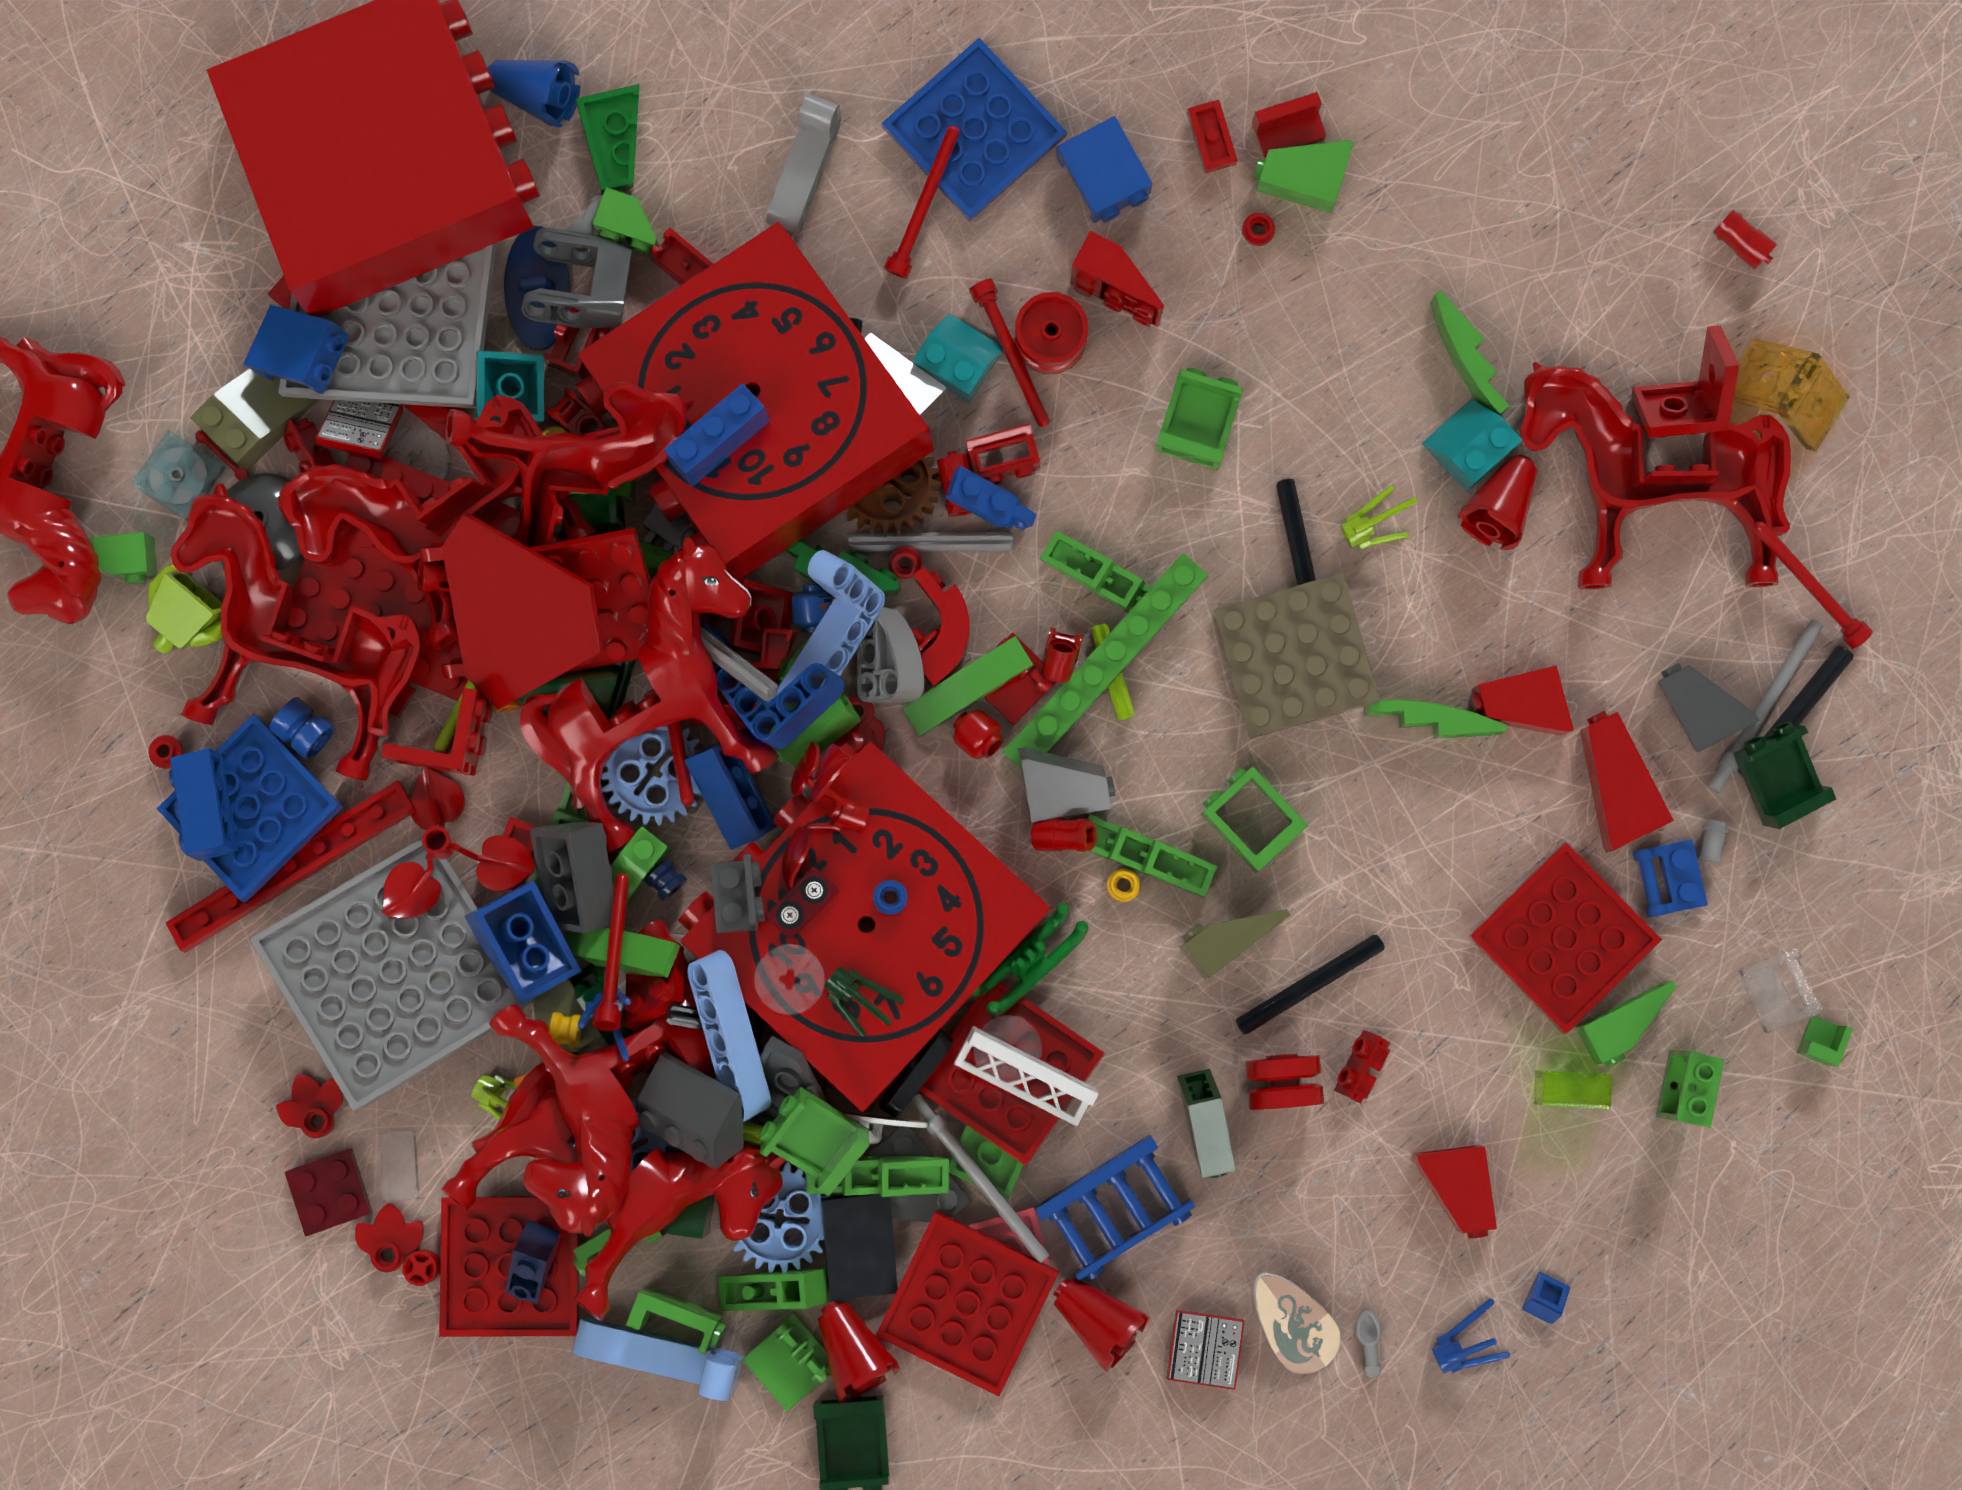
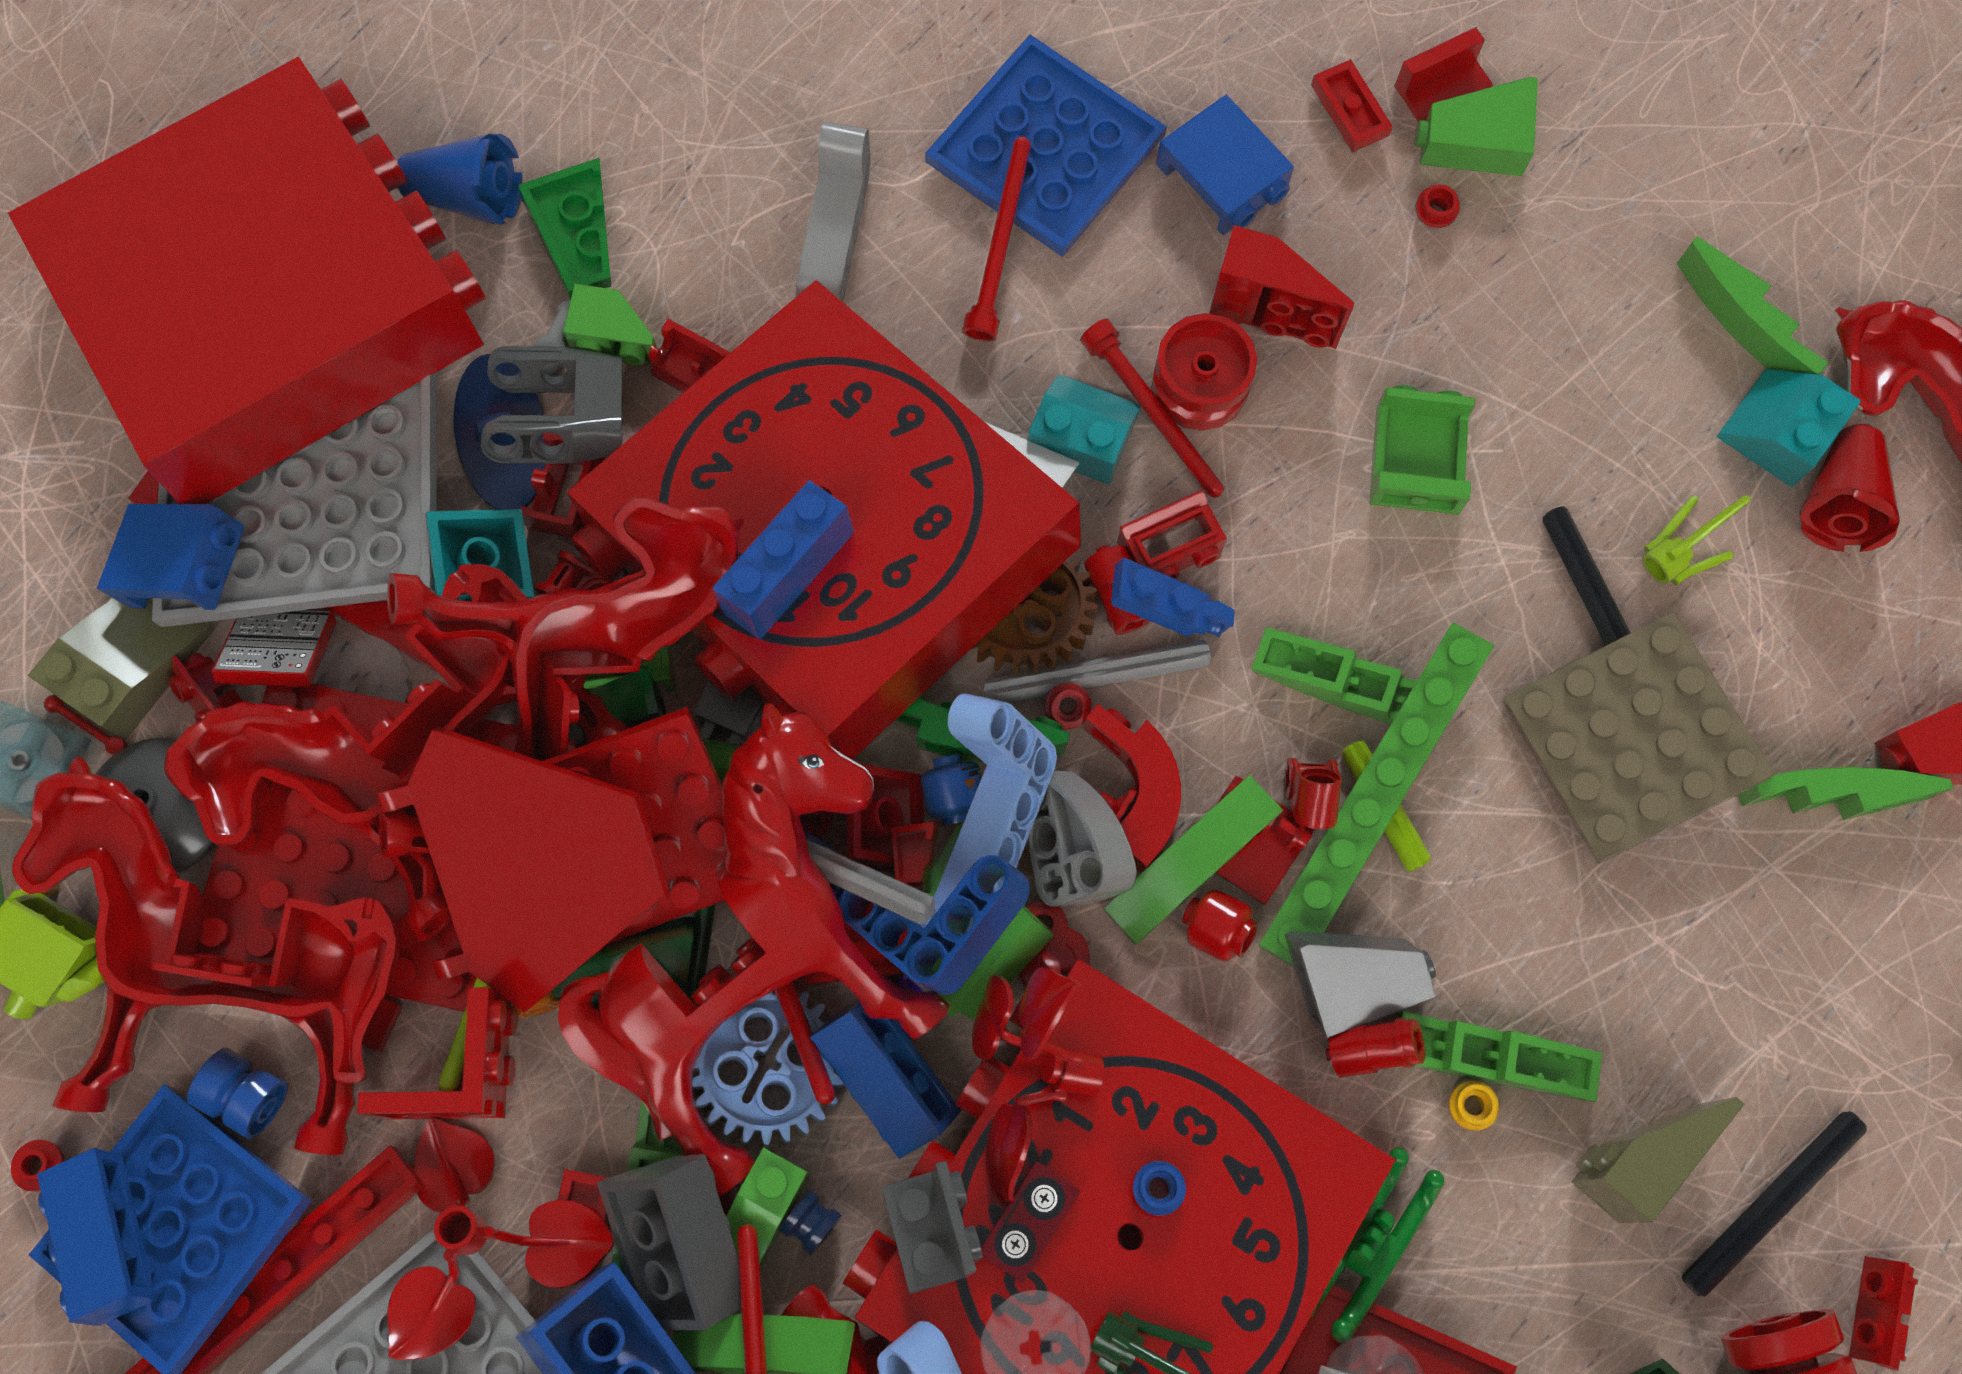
camera: 15 degrees left, 10 degrees down
(1277, 844) = (1677, 1004): bright green window -> none

